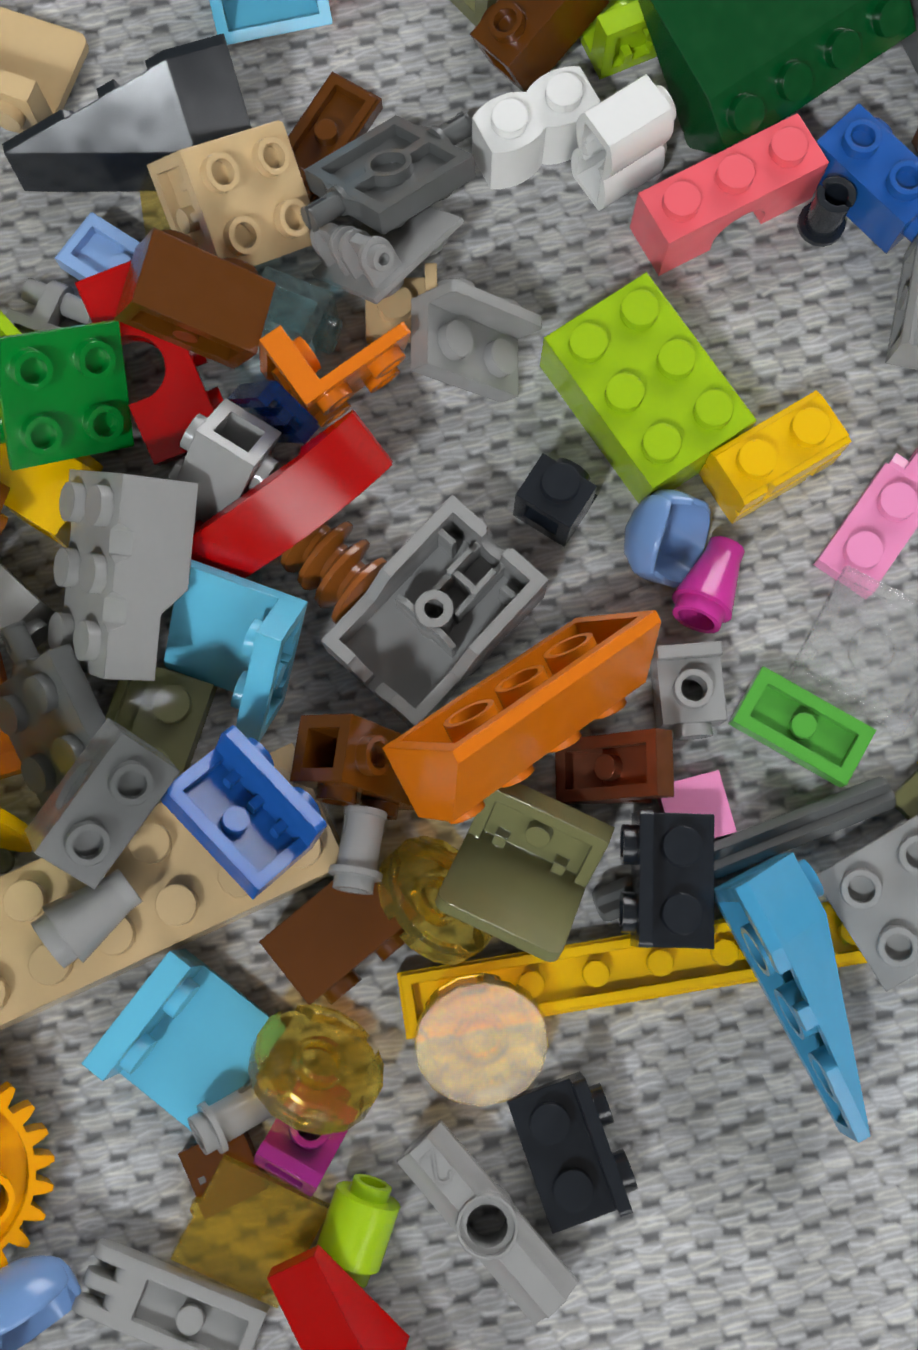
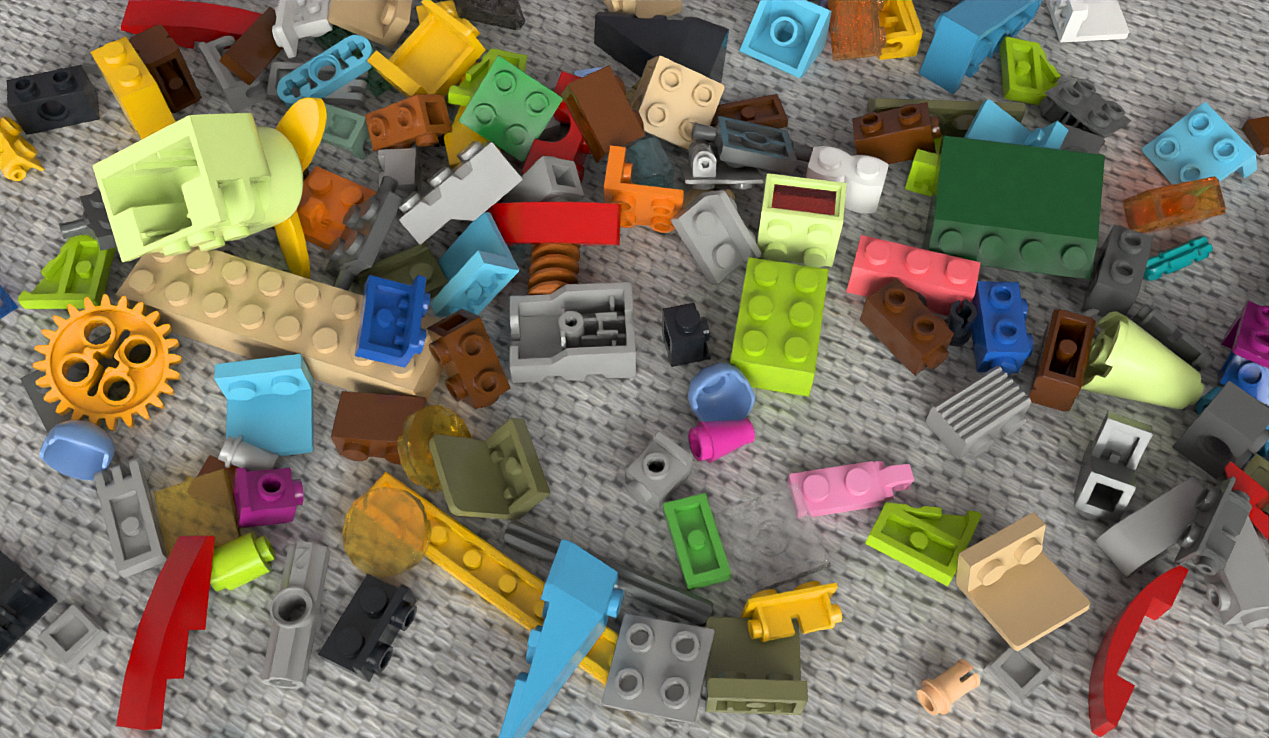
camera: 45 degrees right, 20 degrees down
(85, 918) = (281, 303): light grey cone -> none
(100, 803) = (339, 259): dark grey brick -> none
(284, 414) = (592, 183): clear blue tile -> none
(315, 1069) = (302, 468): clear yellow tile -> none
(359, 850) = (423, 387): light grey pin -> none
(522, 713) = (560, 394): orange slope -> none
(551, 230) = (801, 220): none -> yellowish green piece
(616, 768) = (583, 475): copper slope -> none
(623, 141) = (879, 209): white brick -> none
(669, 880) = (532, 543): black bracket -> none
(702, 796) = (603, 532): bright pink tile -> none
(774, 456) = (813, 406): yellow brick -> none
(783, 266) = (907, 327): none -> reddish brown brick

